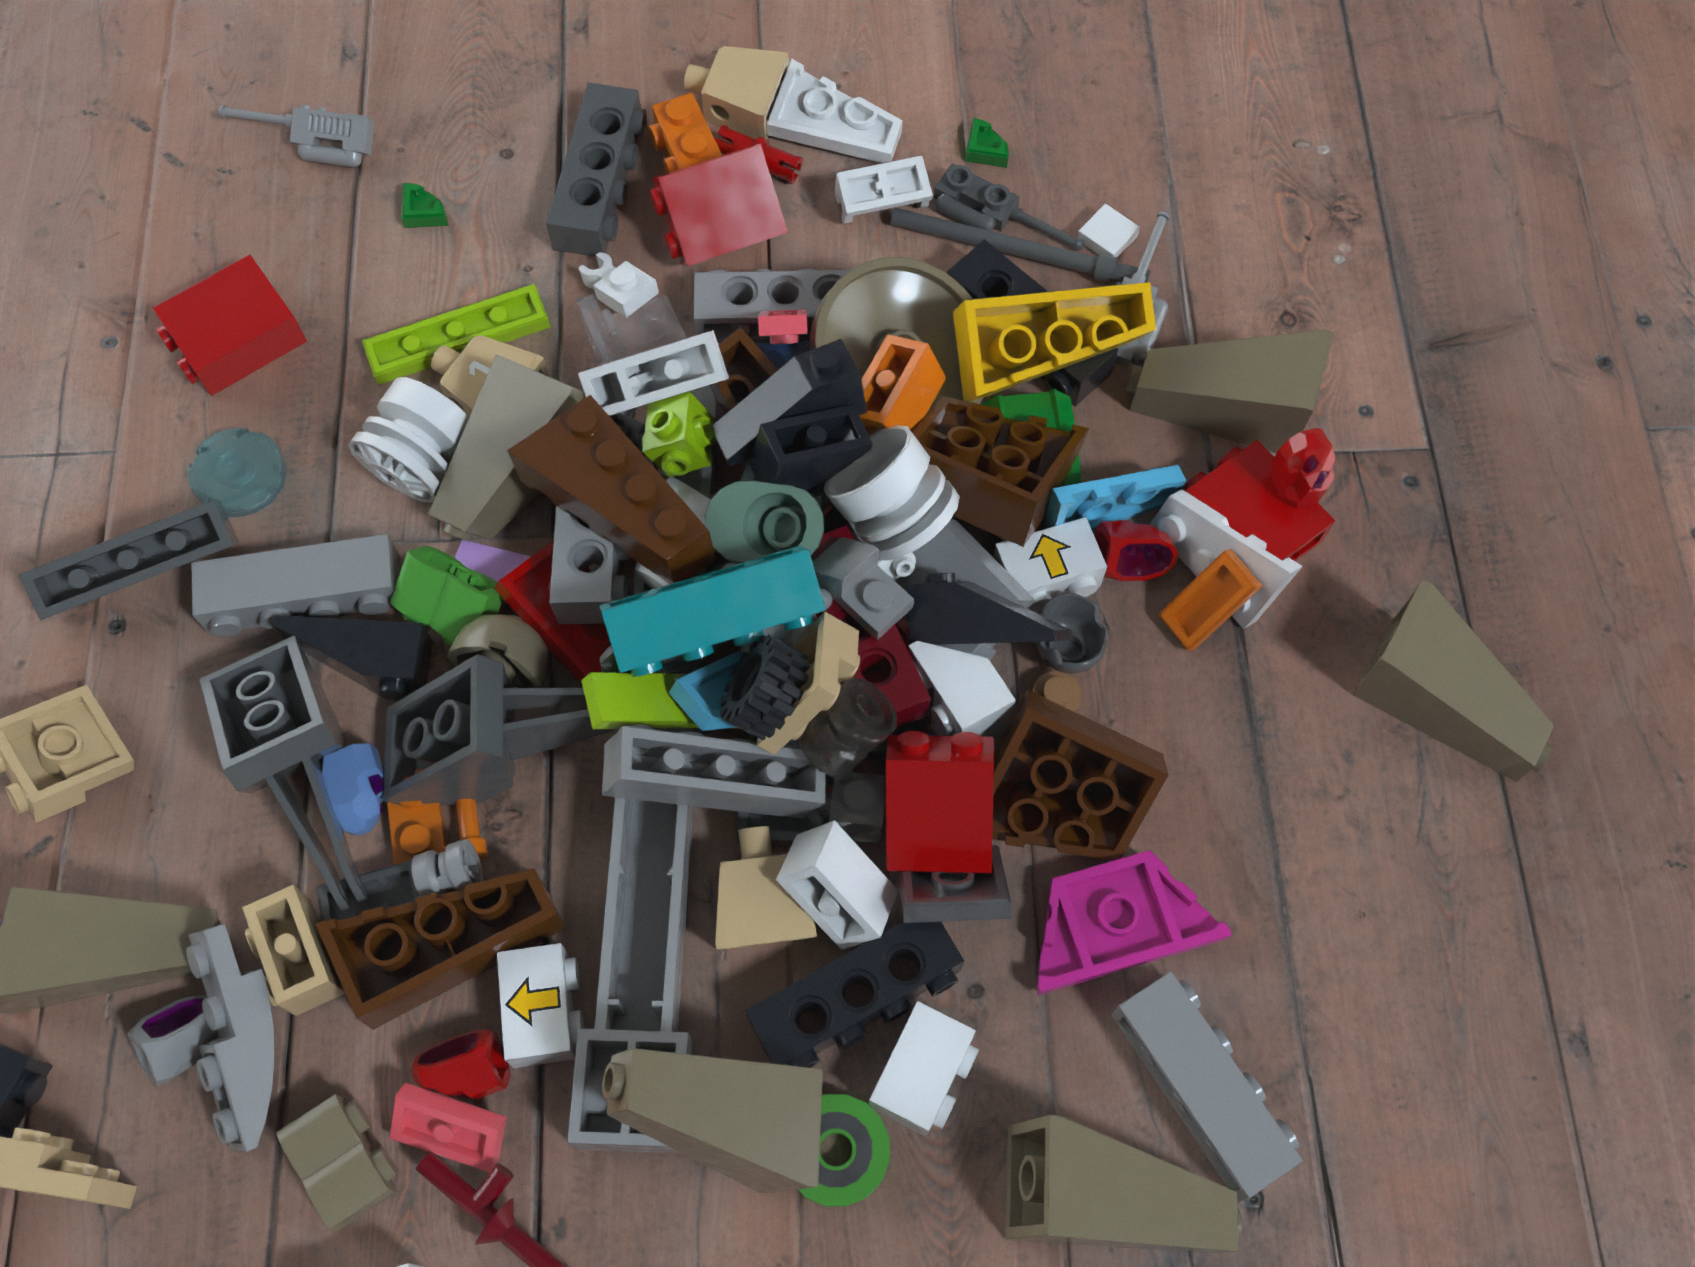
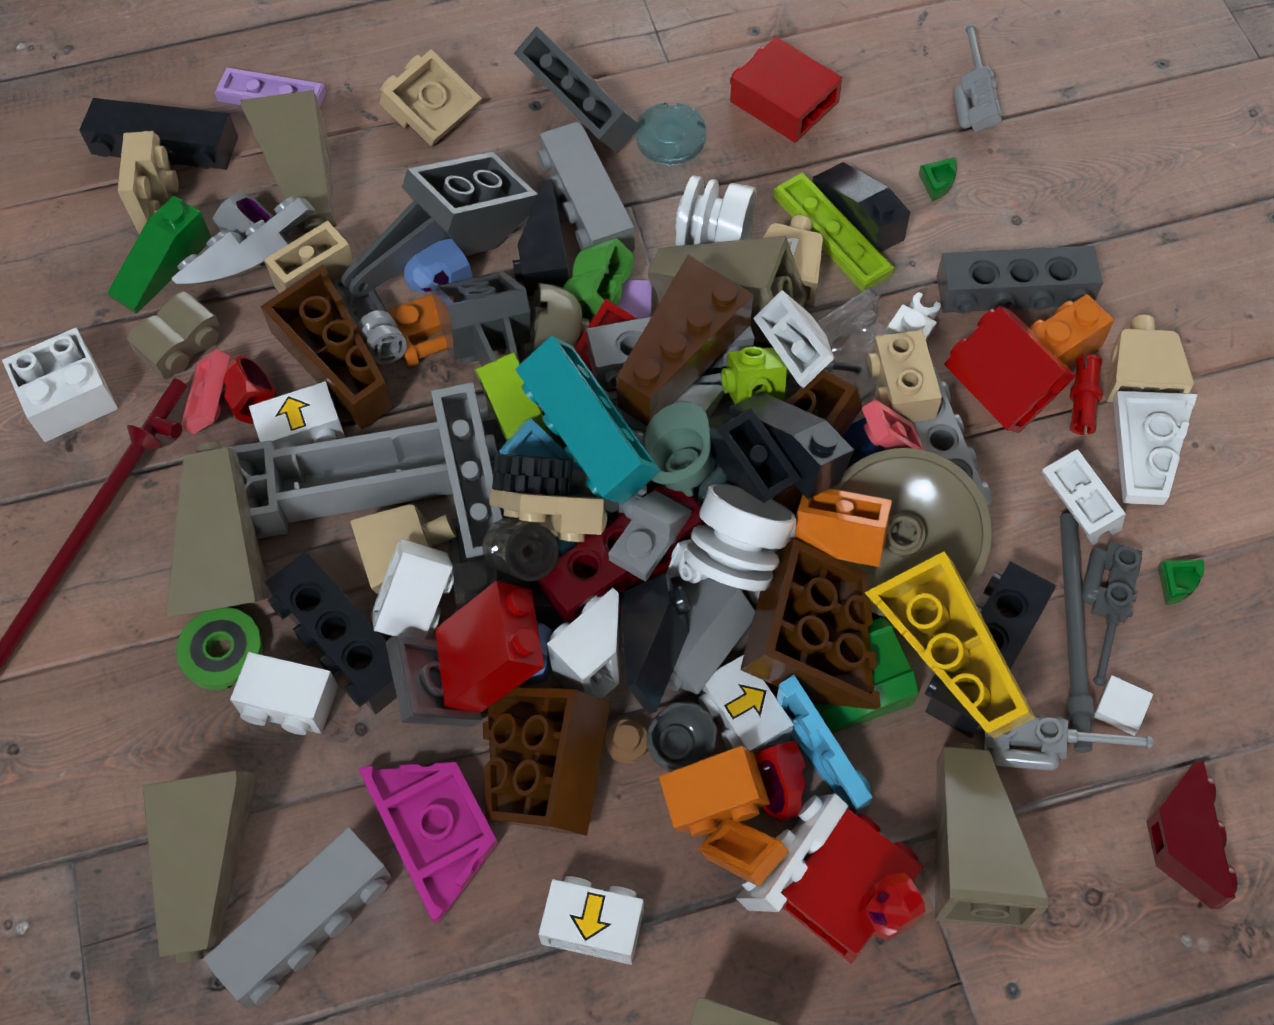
camera: 80 degrees right, 5 degrees down
(185, 1175) = (162, 245): none -> green slope
(432, 286) = (866, 204): none -> black slope
(709, 296) = (905, 375): none -> tan brick
(1144, 610) = (714, 791): none -> orange brick
(1251, 218) = (1191, 839): none -> dark red slope
(1255, 768) = (592, 920): none -> white brick

